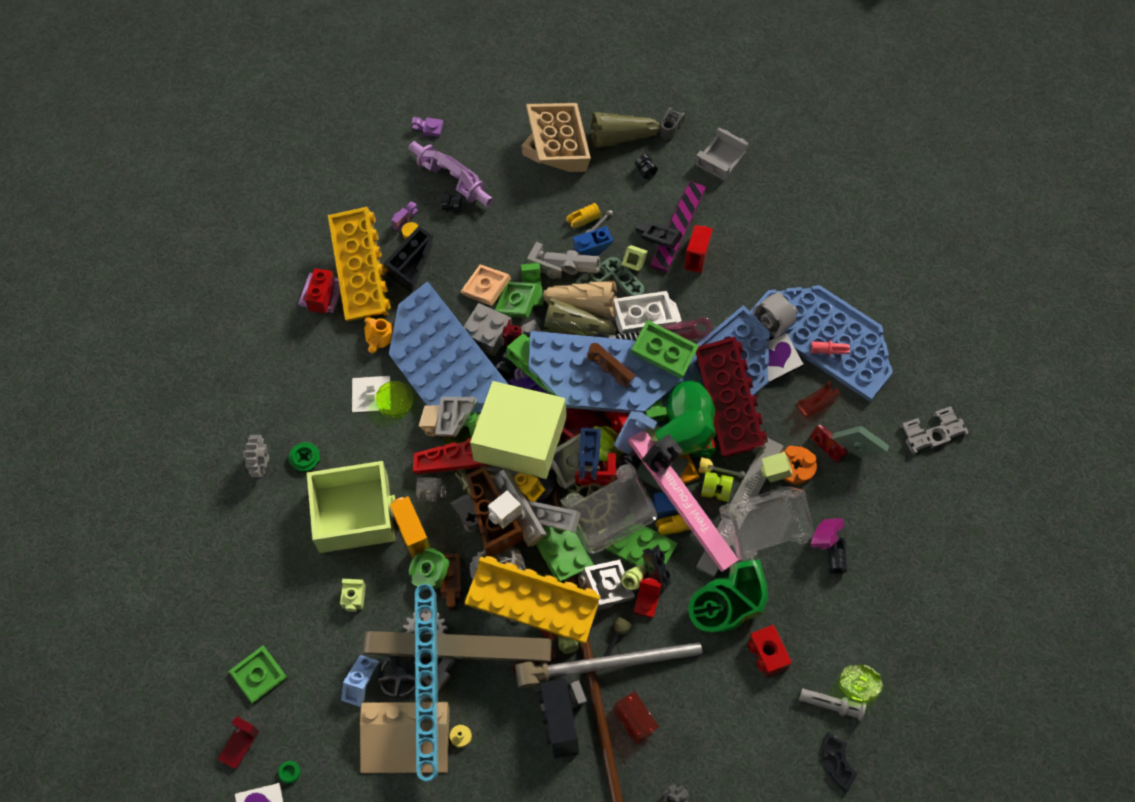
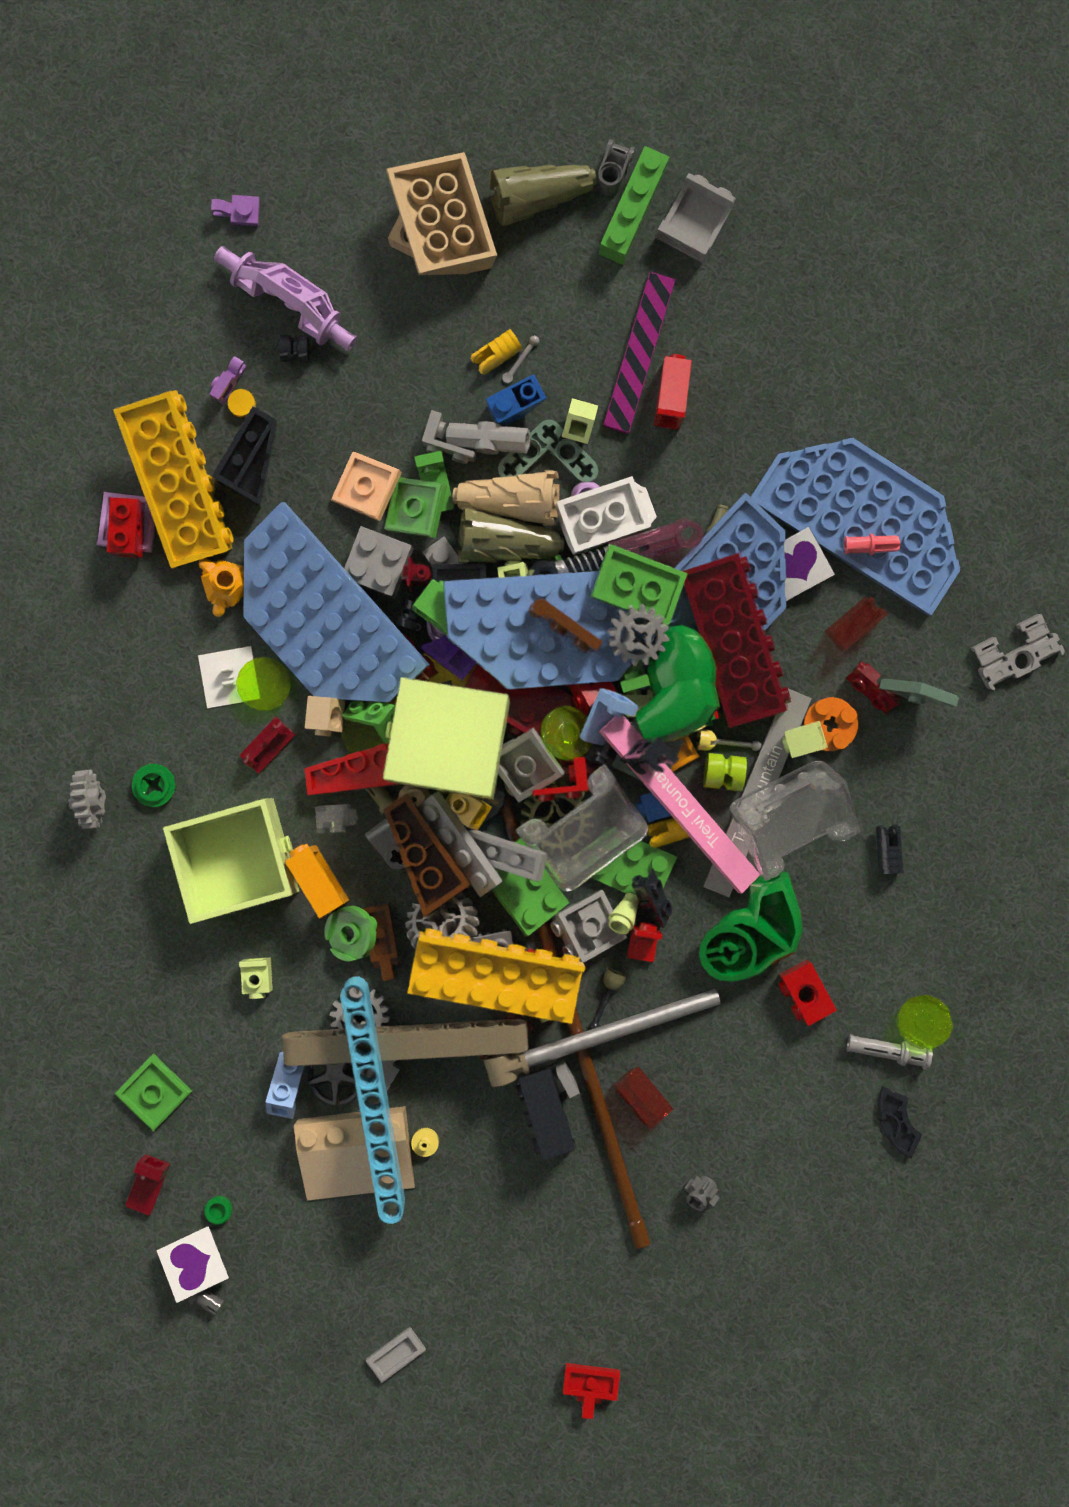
camera: 10 degrees left, 25 degrees up
(390, 438) = (267, 745): none -> dark red hinge
(453, 414) = (351, 711): light grey wing -> none
(504, 509) = (442, 863): white brick -> none
(589, 451) = (549, 760): dark blue hinge -> none
(645, 164) = (582, 251): black wheel -> none
(657, 370) = (645, 627): none -> light grey gear
(659, 234) = (612, 376): black hinge -> none
(682, 143) = (634, 205): none -> bright green brick
(776, 314) = (793, 503): light grey brick -> none
(826, 533) = (875, 826): magenta slope -> none

